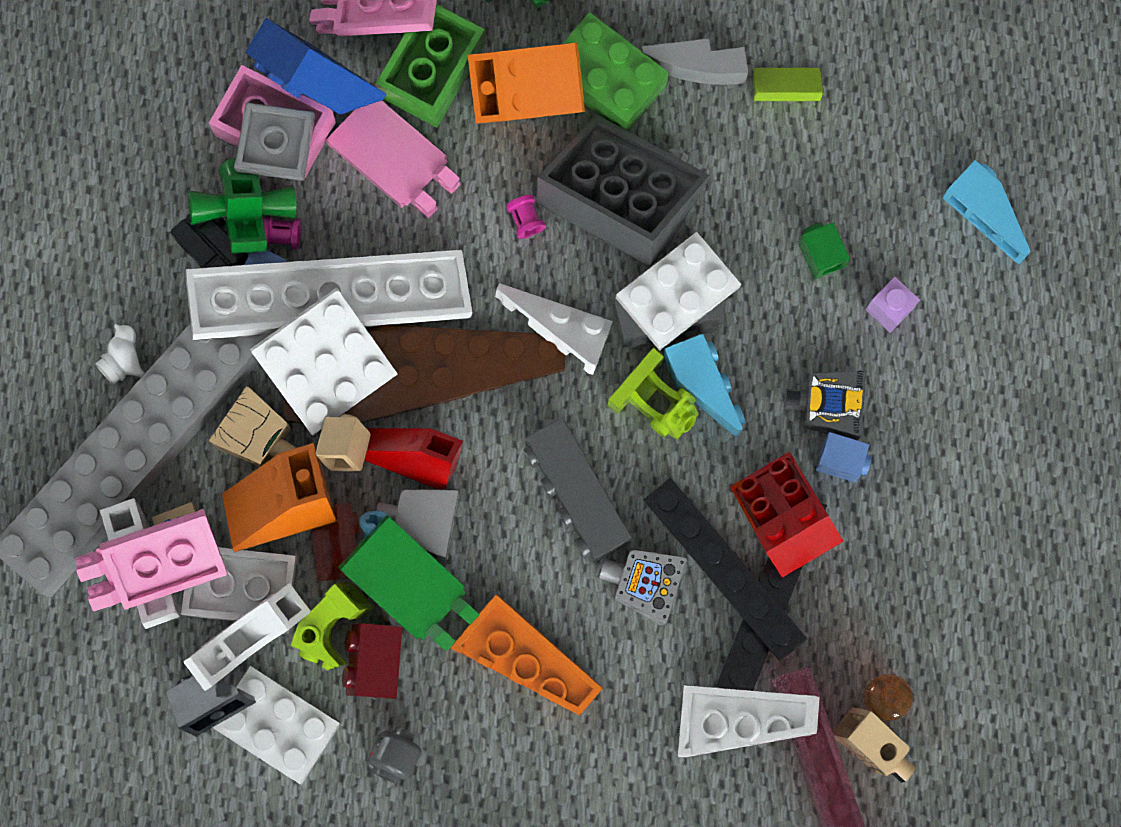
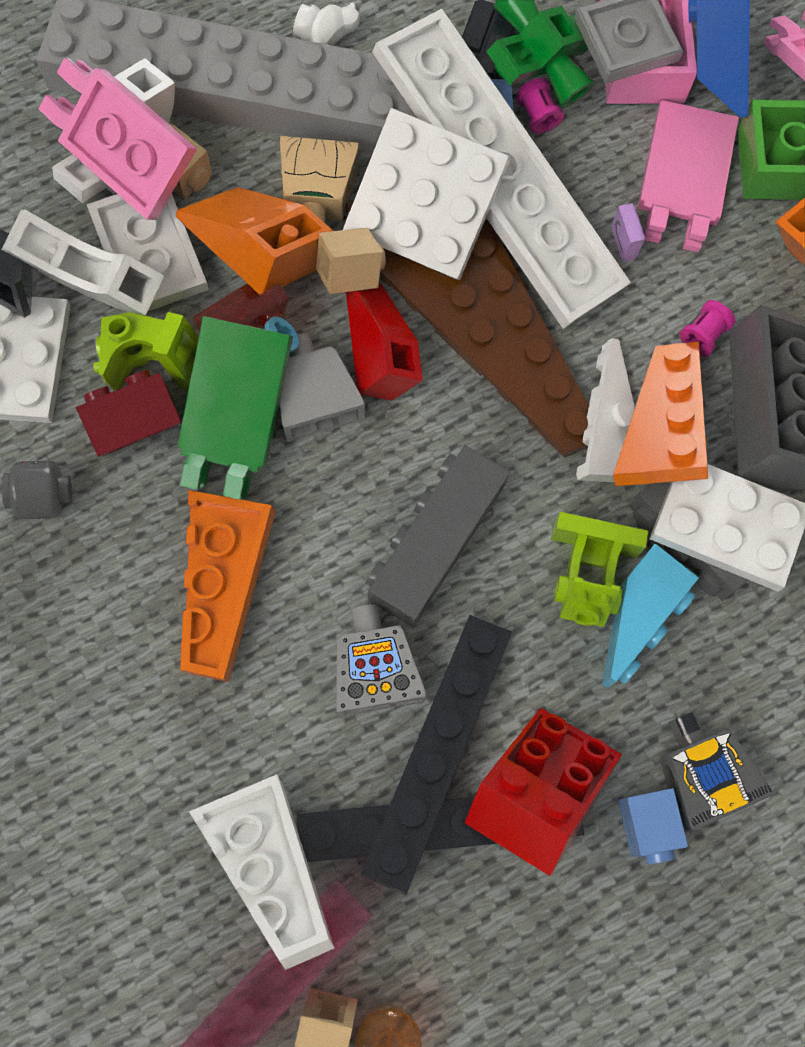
camera: 60 degrees right, 5 degrees down
(422, 229) = (627, 232): none -> lavender tile
(586, 290) = (668, 422): none -> orange wing

